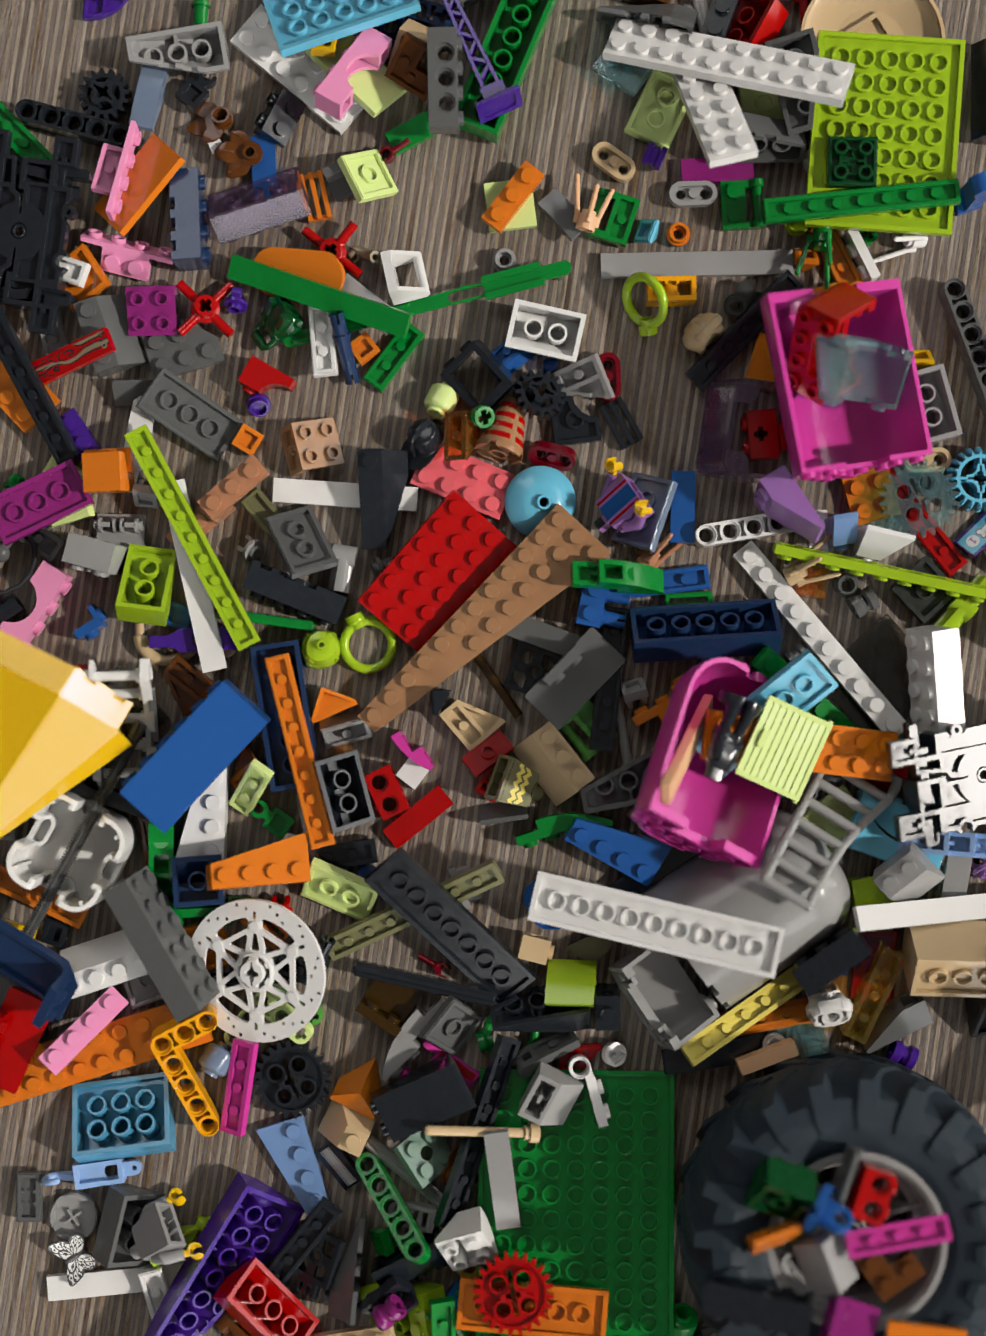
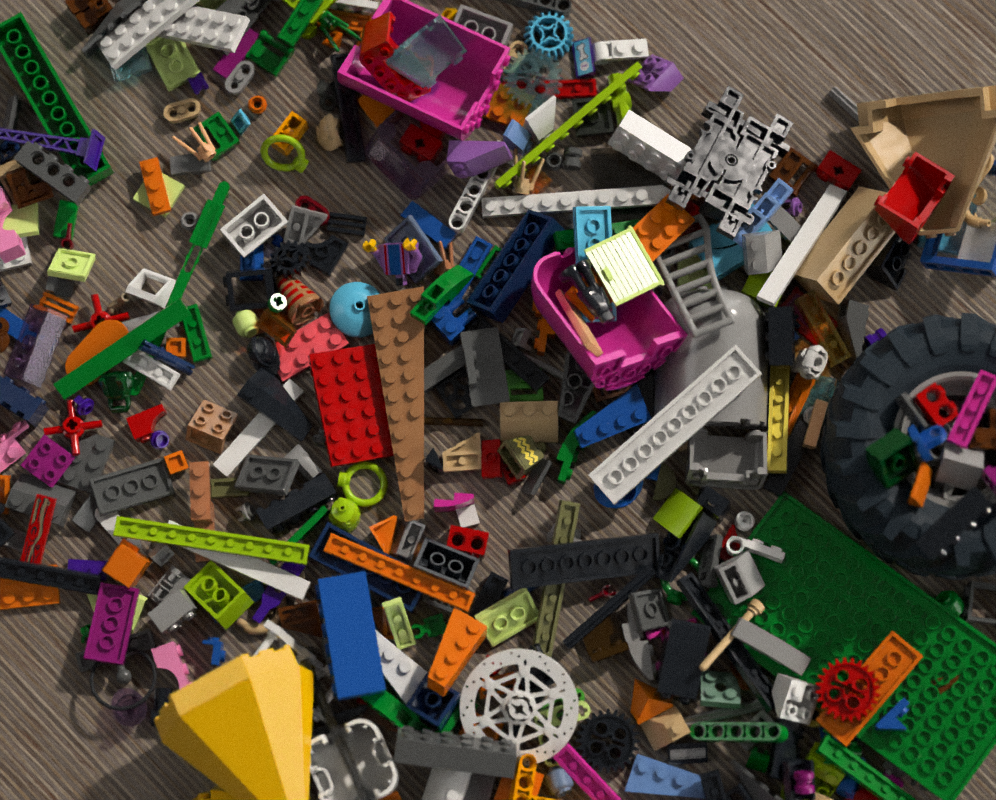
camera: 55 degrees left, 10 degrees down
(418, 816) = (498, 533): red tile -> none
(535, 948) = (639, 520): tan brick -> none
(552, 455) = (334, 280): dark red plate -> none
(697, 263) = (285, 104): light grey tile -> none

